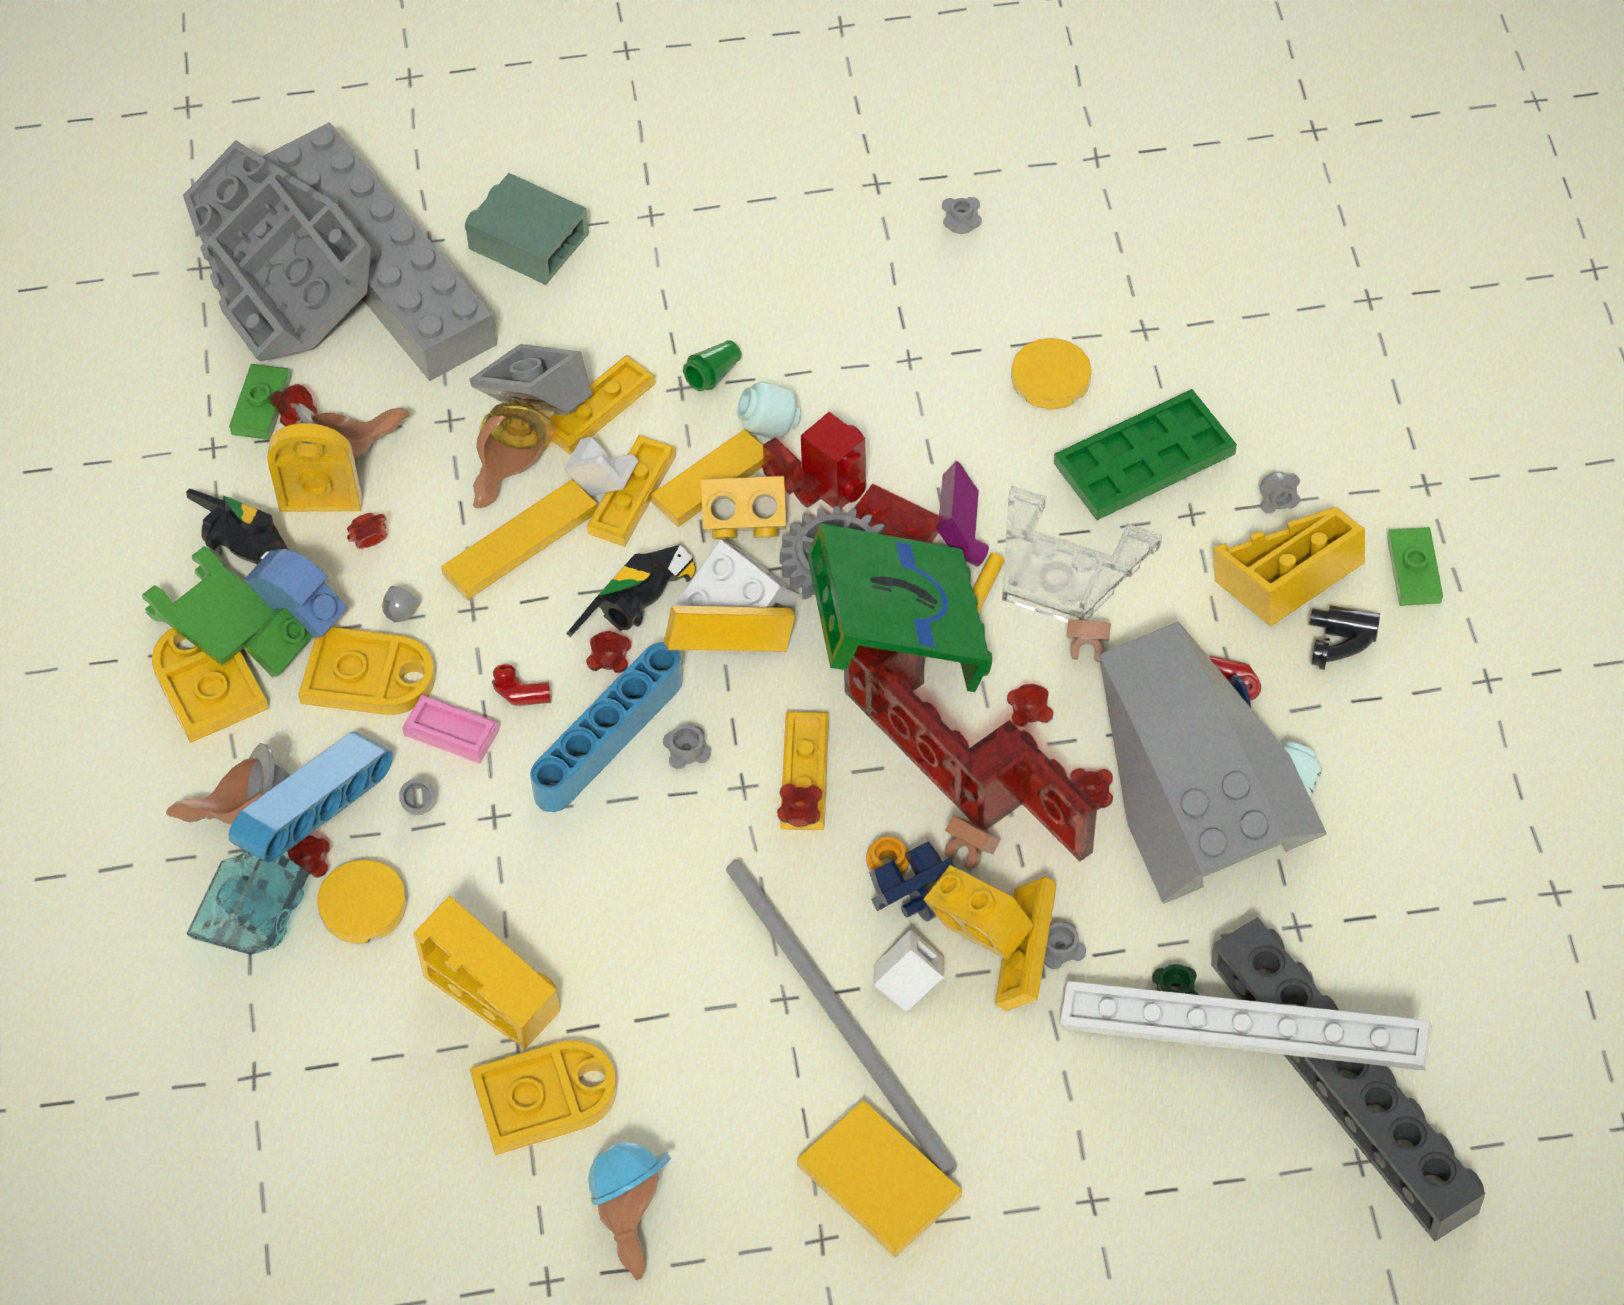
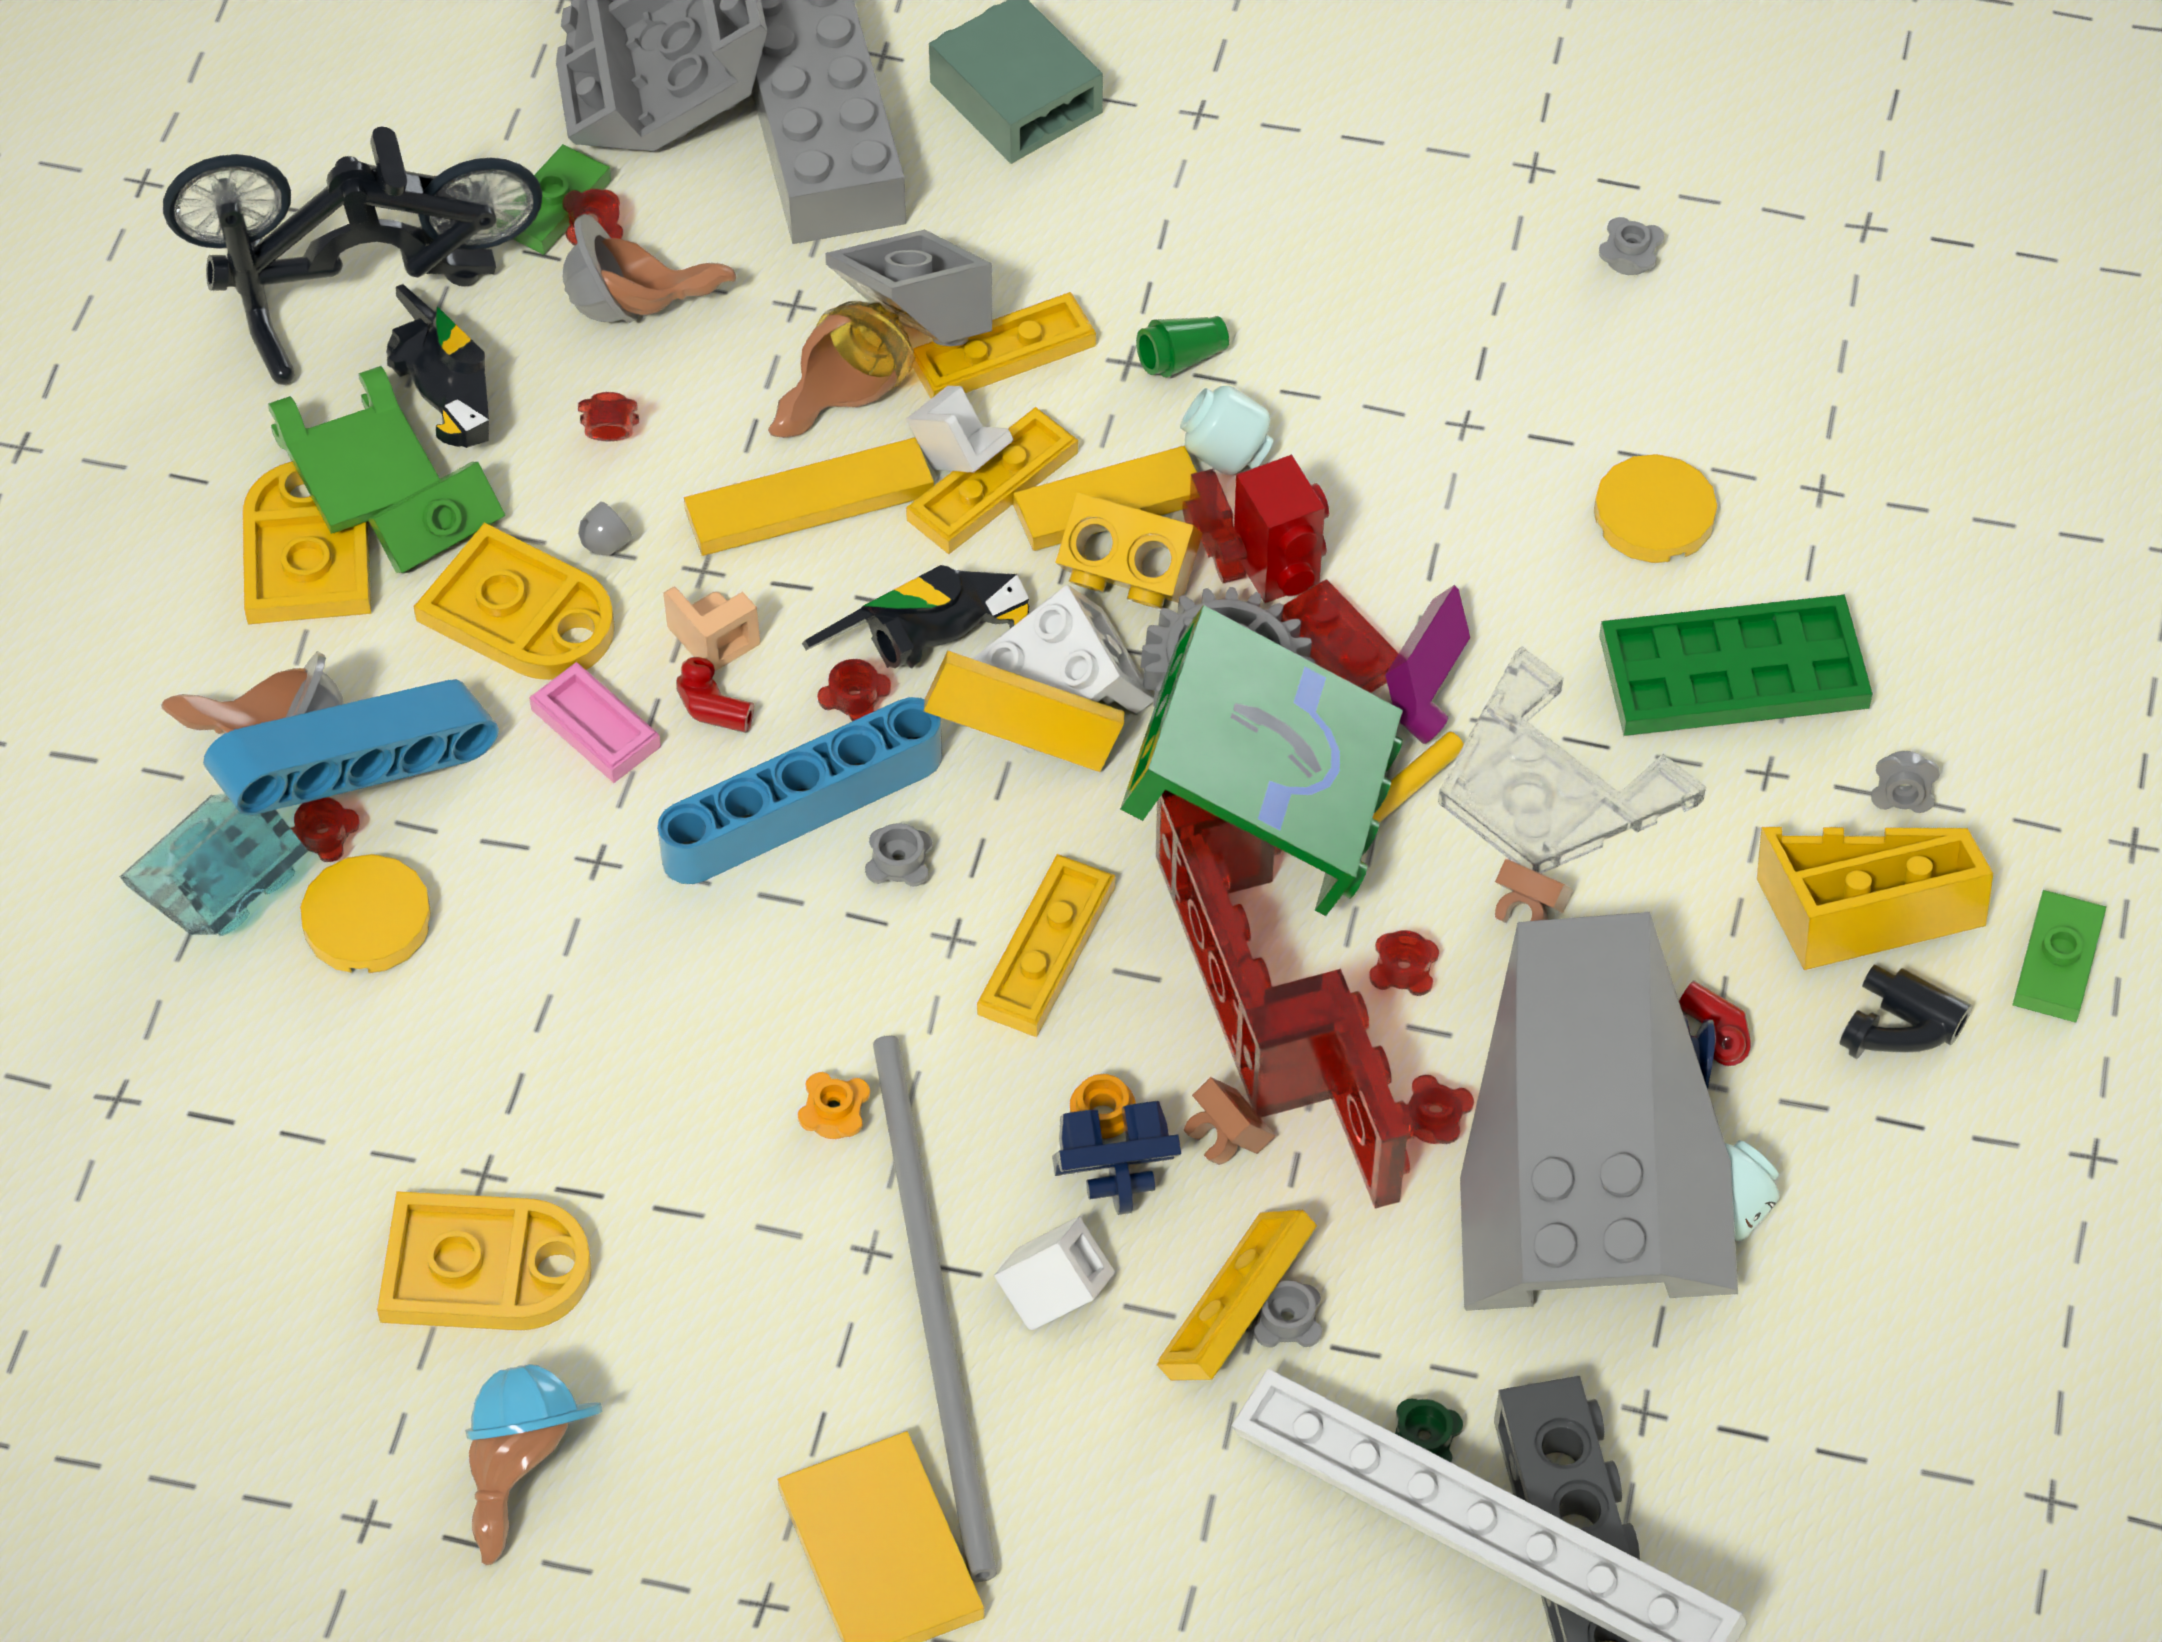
camera: 20 degrees right, 0 degrees up
(81, 474) = (243, 198): none -> black piece
(297, 584) = (469, 460): medium blue brick -> none
(314, 474) = (564, 313): yellow tile -> none
(407, 796) = (491, 795): light grey hinge -> none
(484, 974) = (472, 1068): yellow wedge -> none
(497, 642) = (713, 626): none -> light nougat panel
(721, 927) = (833, 1121): none -> light orange plate
(799, 815) = (1009, 1004): clear red plate -> none
(979, 912) = (1183, 1226): yellow brick -> none

